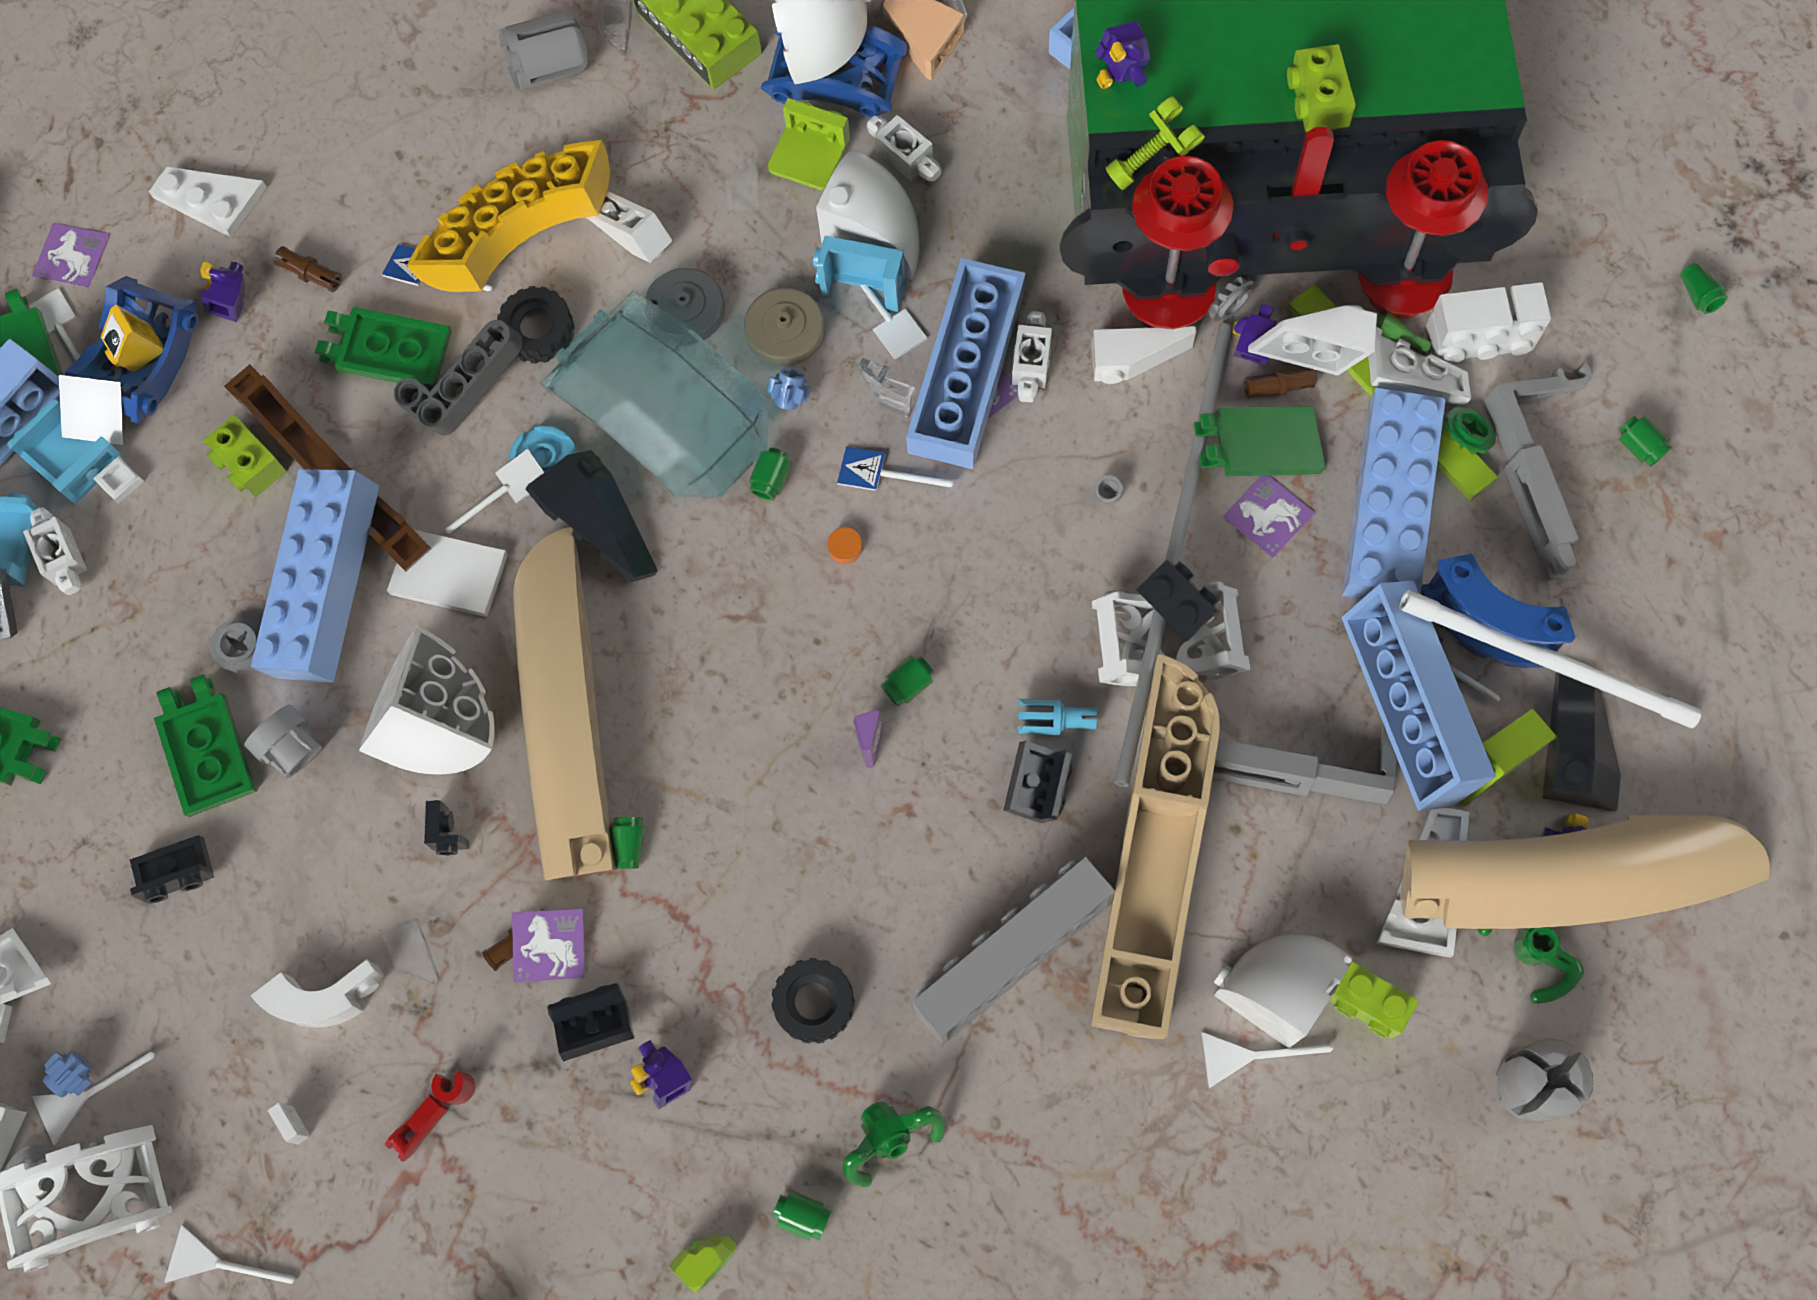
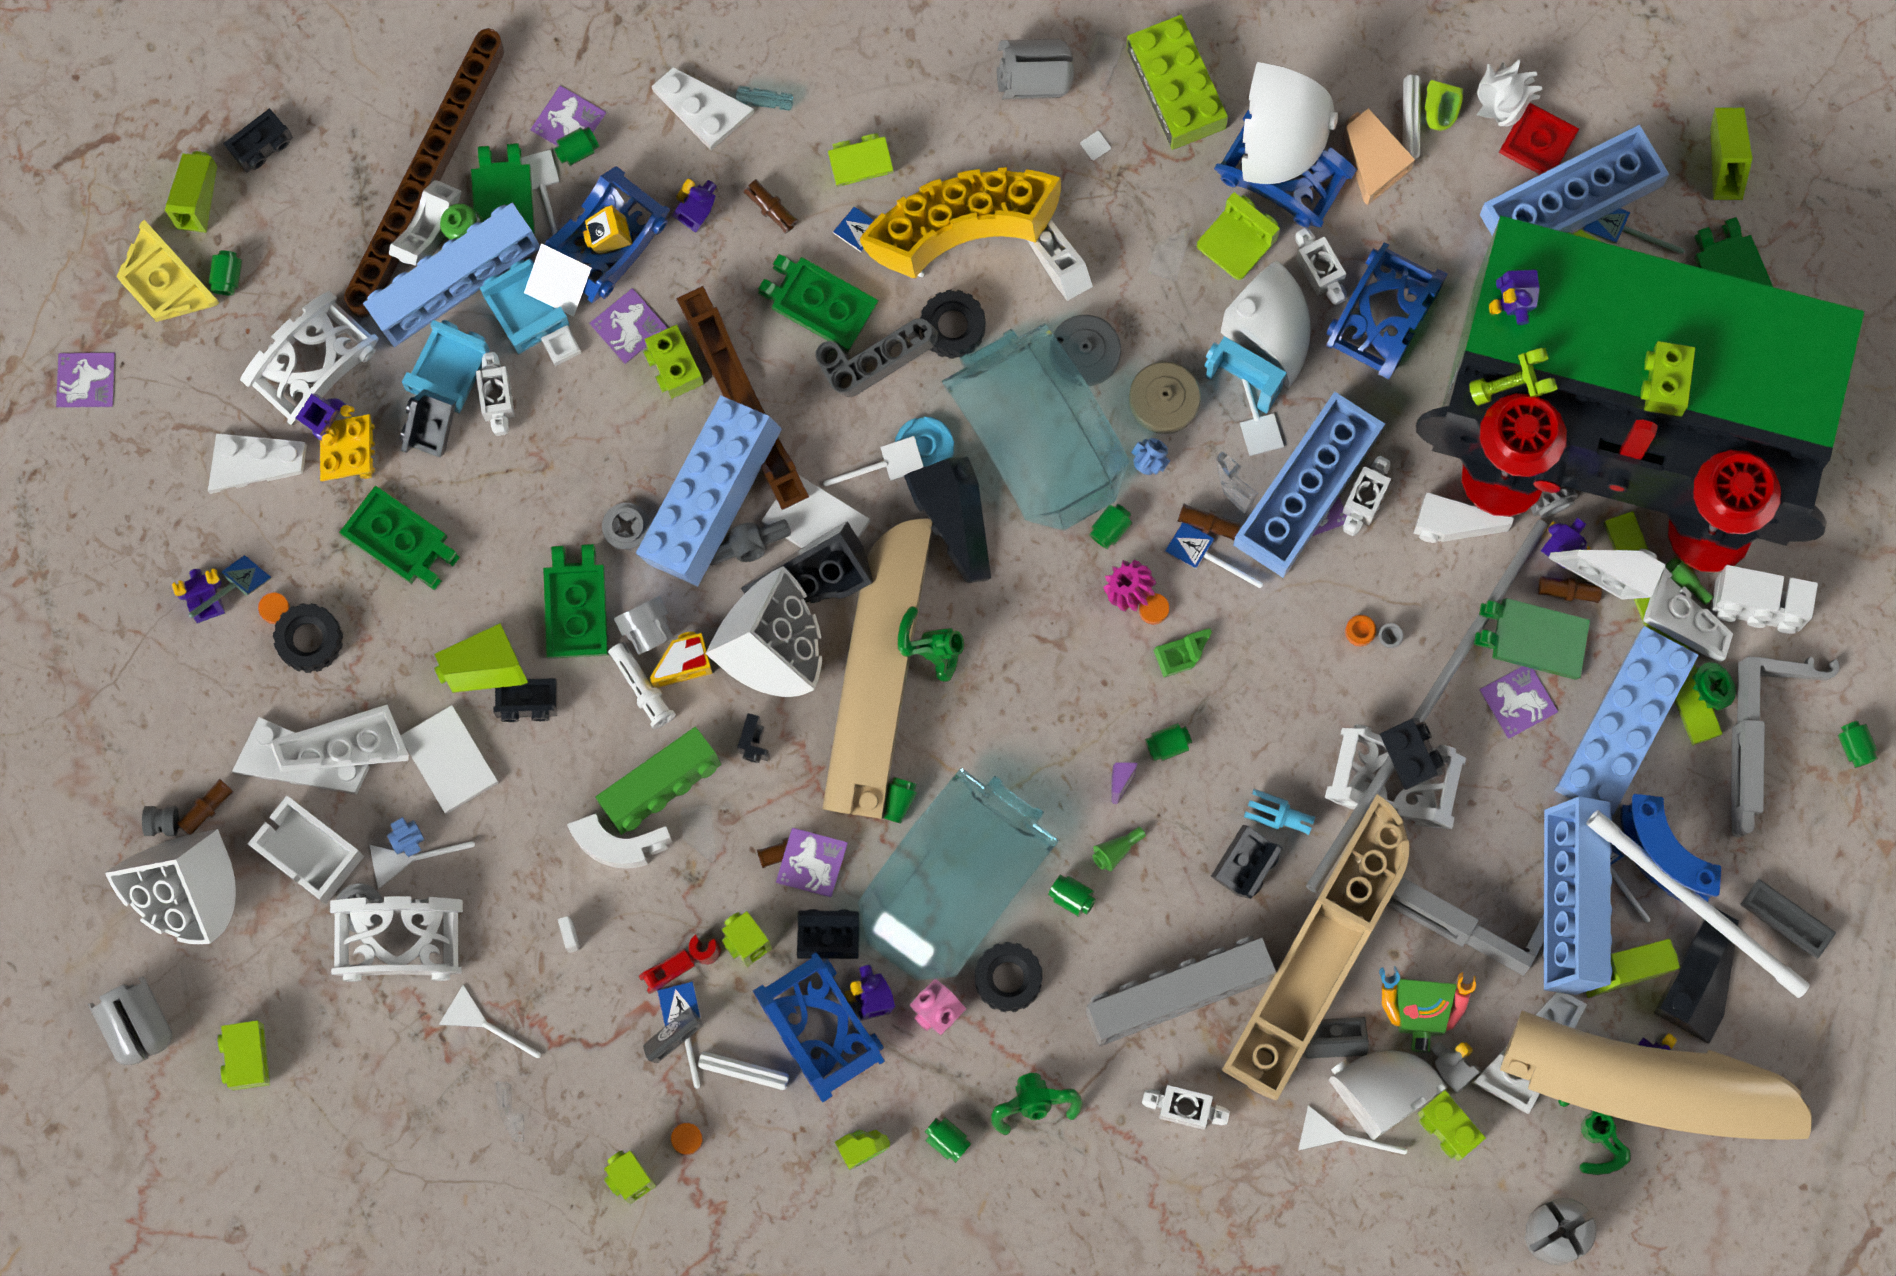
camera: 15 degrees right, 5 degrees up
(81, 273) = (576, 146): none -> green brick
(100, 967) = (449, 759): none -> white tile
(105, 845) = (480, 662): none -> lime slope
(182, 435) = (627, 325): none -> medium lavender sticker
(273, 167) = (764, 98): none -> clear light blue axle
(310, 821) = (648, 697): none -> white pin
(338, 770) = (682, 661): none -> slope
(345, 911) = (658, 781): none -> bright green brick
(379, 616) = (749, 541): none -> dark grey axle
(388, 193) = (860, 160): none -> lime brick
(442, 1165) = (674, 1002): none -> piece
(443, 1203) = (672, 1035): none -> dark grey slope
(472, 612) = (827, 566): none -> black wedge
(493, 1059) = (745, 938): none -> lime brick
(539, 1215) = (743, 1070): none -> white axle
(559, 1128) = (817, 1069): none -> blue fence
(618, 657) = (938, 645): none -> green piece
(633, 109) = (1095, 145): none -> white sticker
(712, 908) = (953, 876): none -> clear light blue windscreen
(741, 1064) = (937, 1007): none -> bright pink brick
(810, 527) = (1129, 585): none -> dark pink gear
(856, 883) = (1072, 895): none -> green brick
(873, 436) = (1208, 521): none -> reddish brown pin
(884, 821) = (1110, 853): none -> bright green cone
(891, 583) = (1181, 654): none -> bright green slope
(978, 130) = (1421, 283): none -> blue fence
(1024, 1086) = (1153, 1099): none -> white piece
(1074, 496) = (1360, 630): none -> orange tile
(1210, 944) = (1339, 1038): none -> dark grey slope
(1292, 874) = (1424, 1006): none -> torso
(1350, 931) = (1454, 1065): none -> light grey piece
(1647, 646) = (1788, 918): none -> dark grey plate

